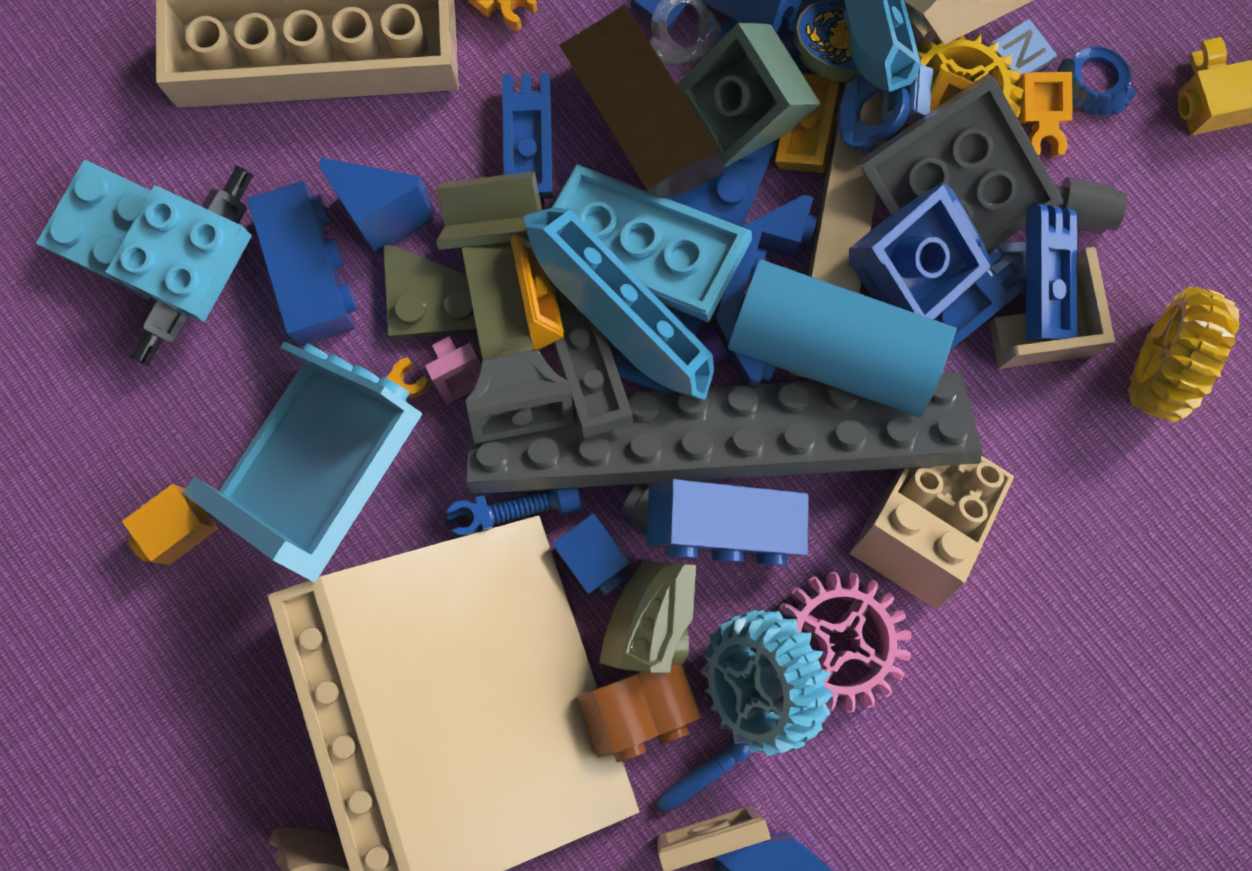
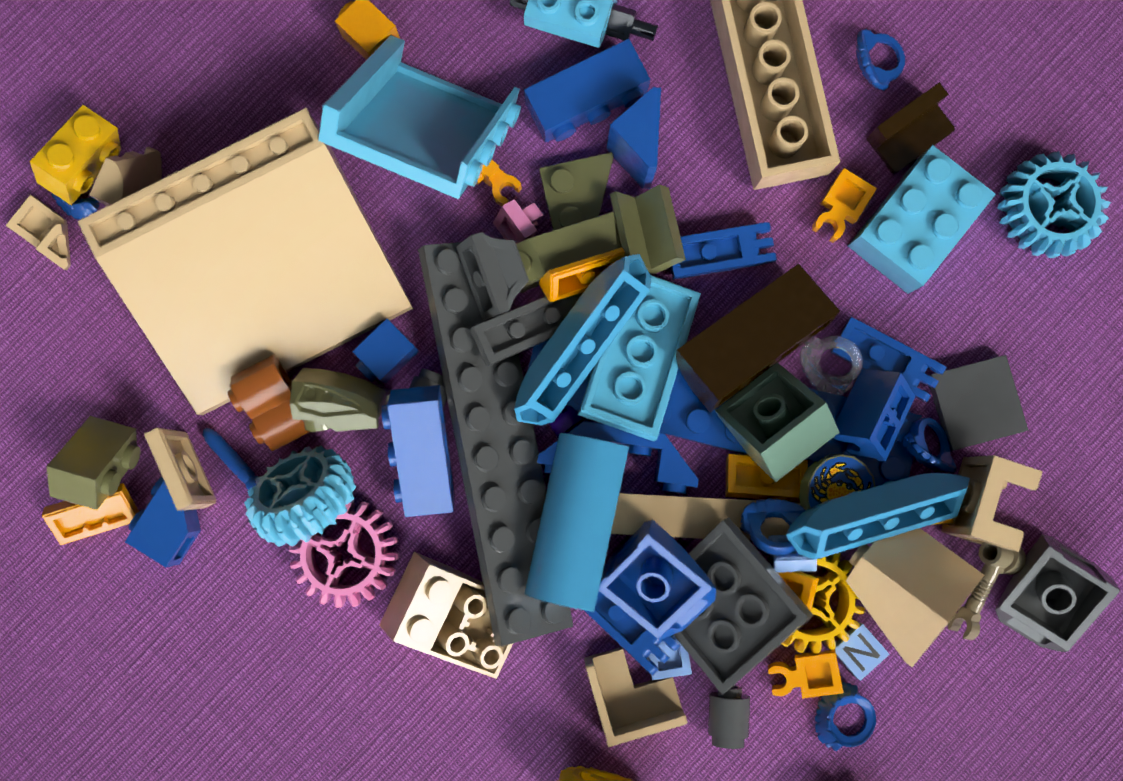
camera: 75 degrees right, 5 degrees up
(484, 516) = (404, 264): blue bar -> none
(1051, 273) = (660, 689): blue hinge -> none

